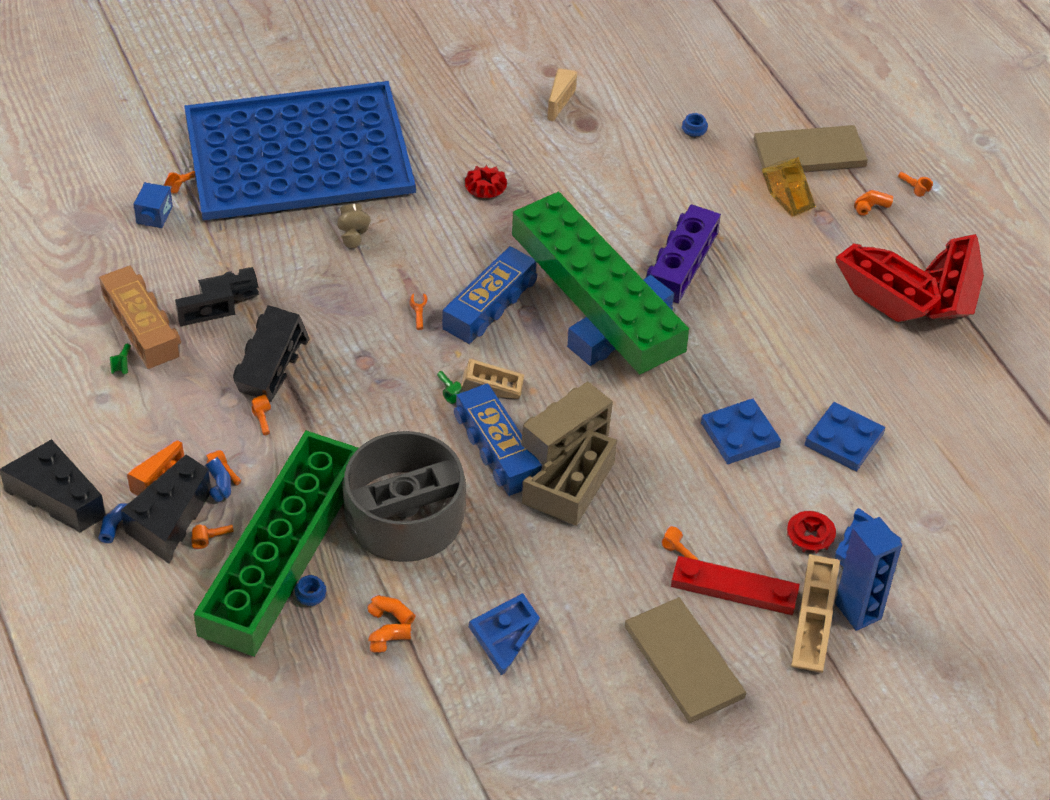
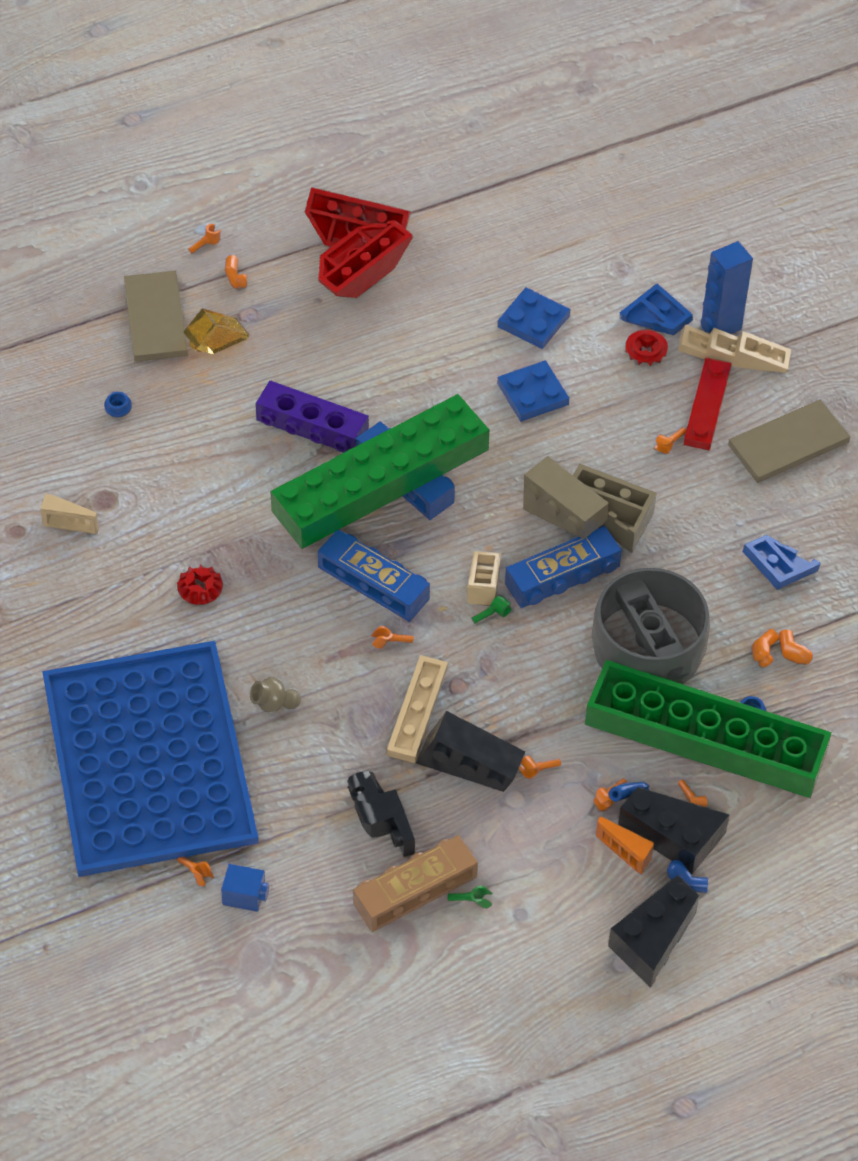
camera: 90 degrees left, 5 degrees up
(341, 325) = (417, 709): none -> tan plate

